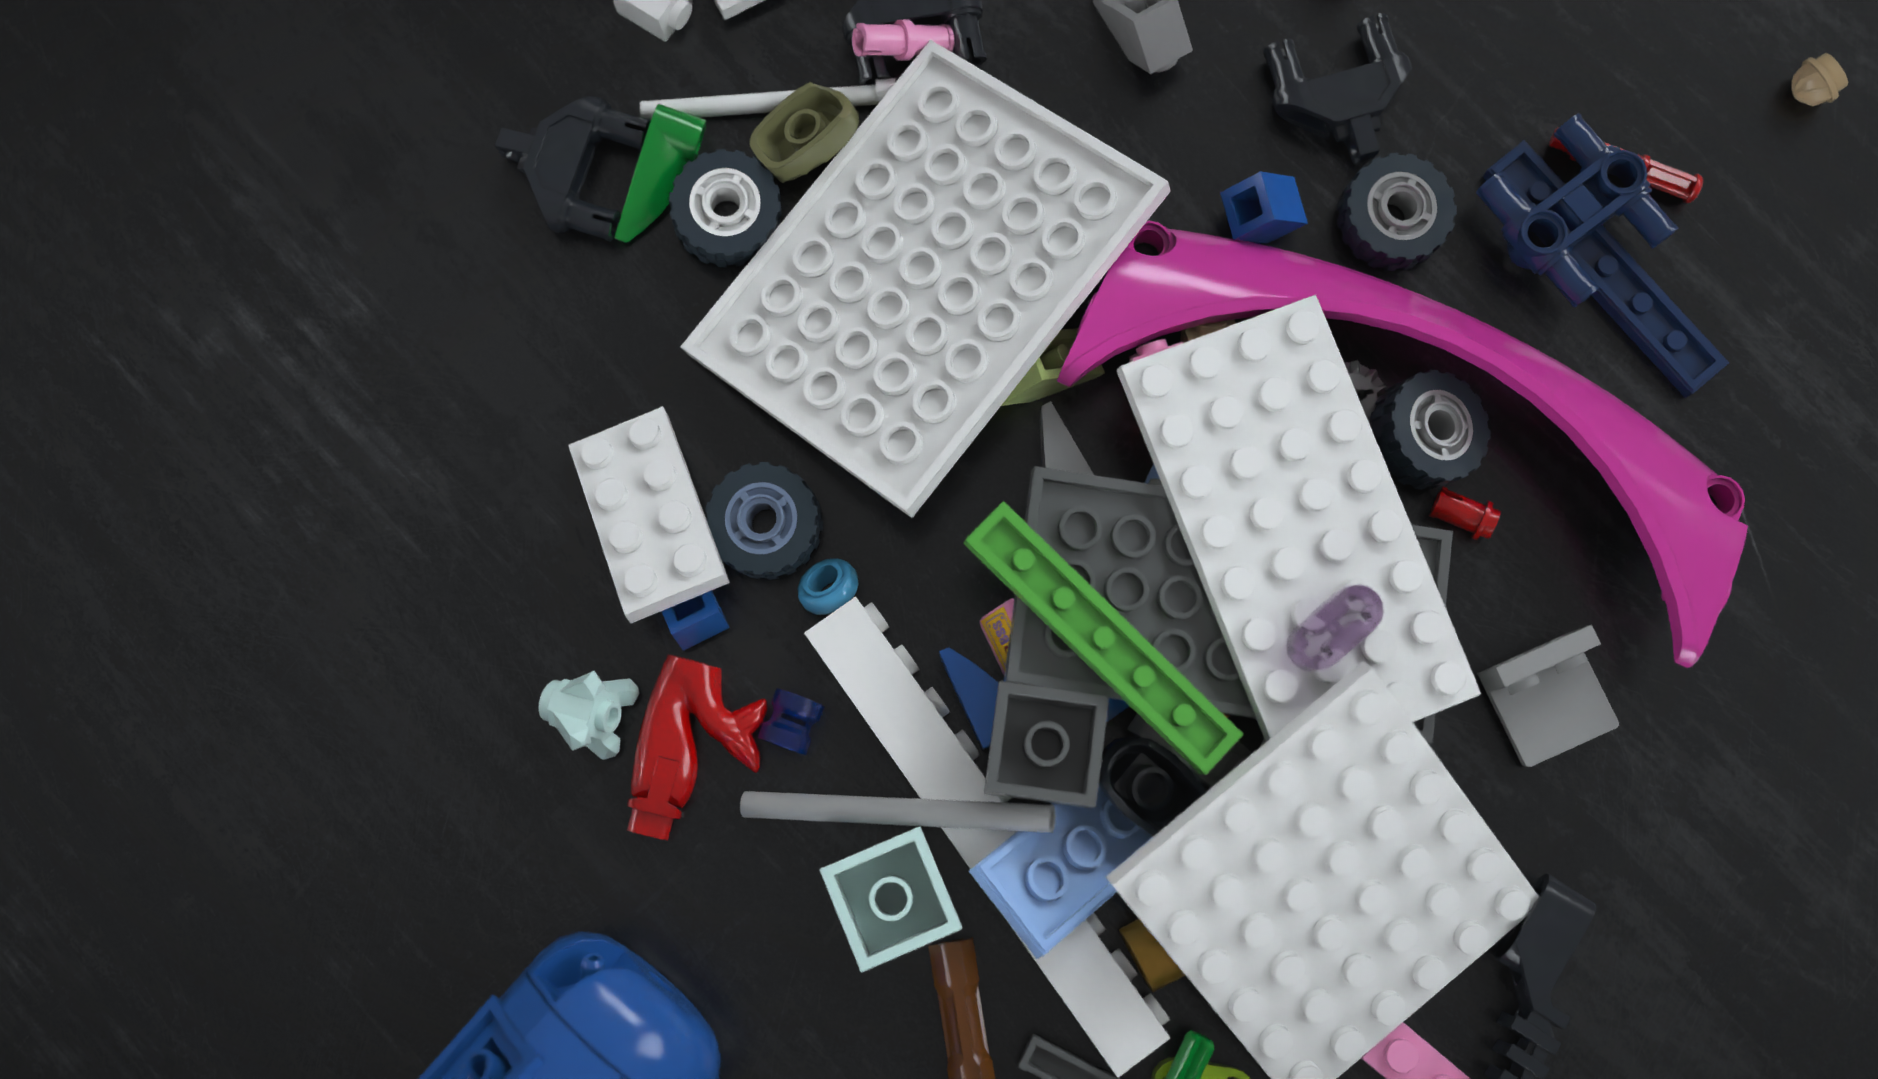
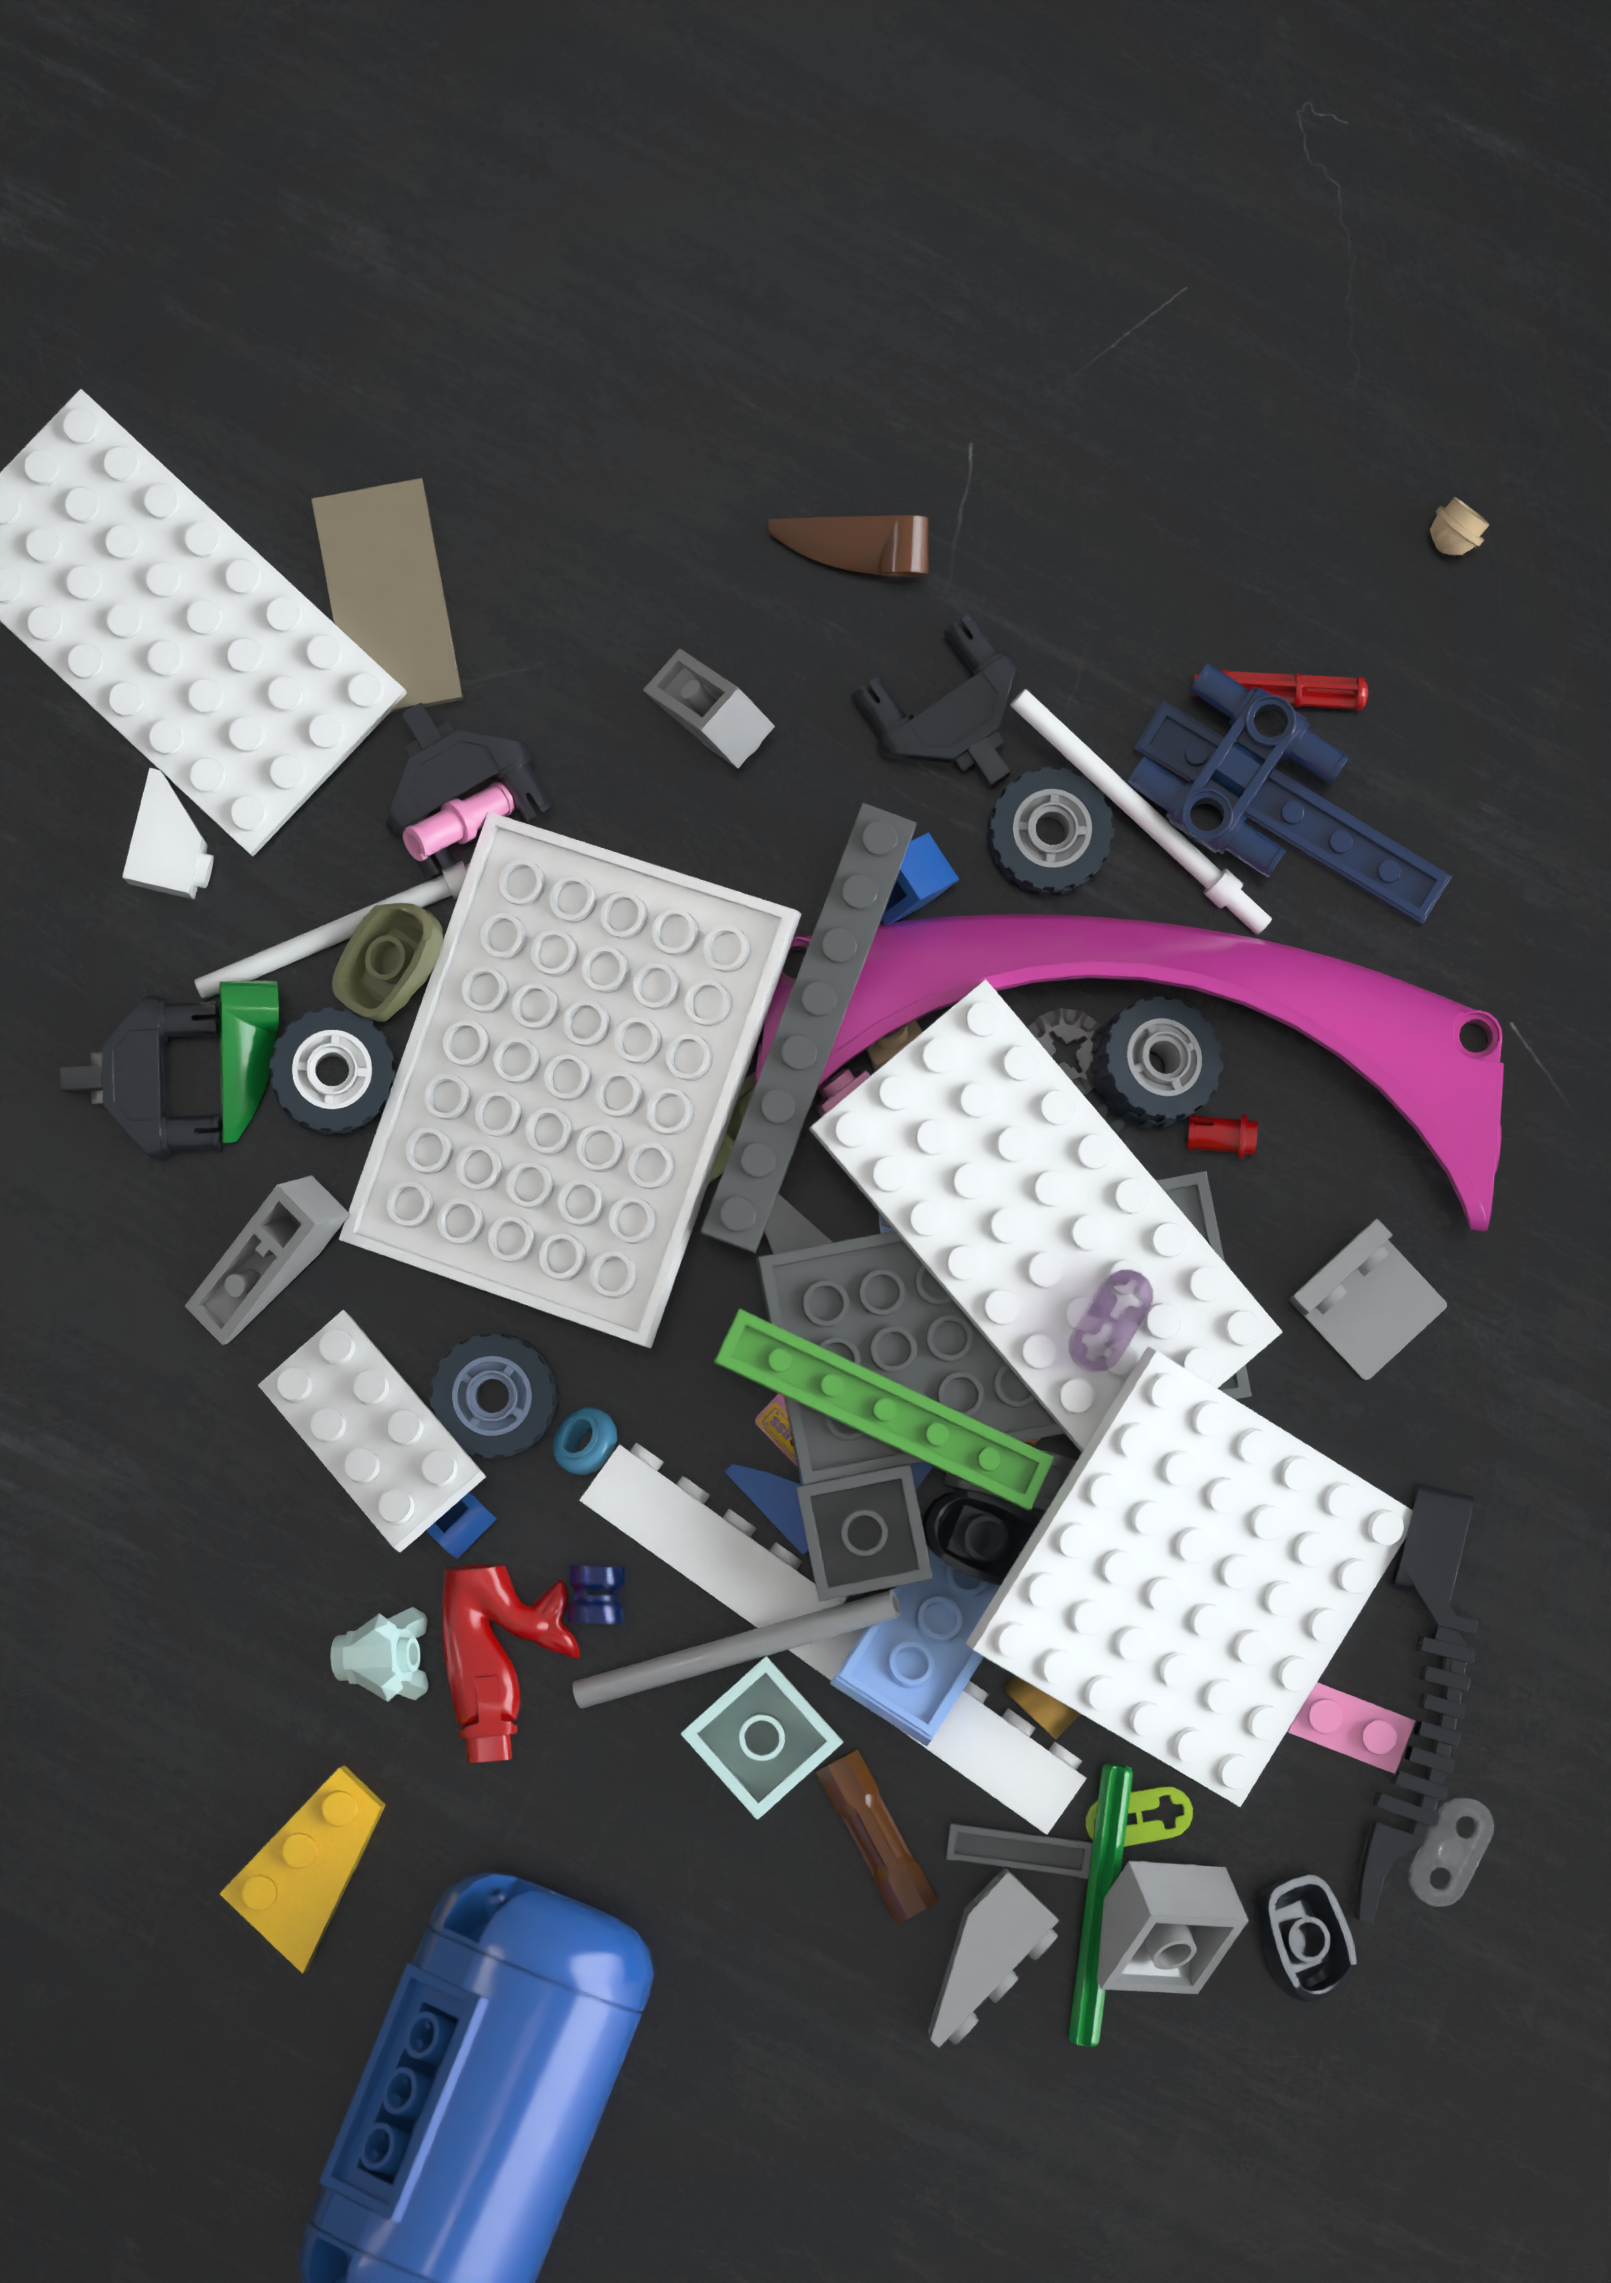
camera: 20 degrees left, 5 degrees up
(448, 875) = (305, 1868): none -> yellow wedge
(616, 338) = (267, 1256): none -> light grey slope
(1143, 289) = (808, 1028): none -> dark grey plate
(1527, 306) = (1220, 885): none -> white bar

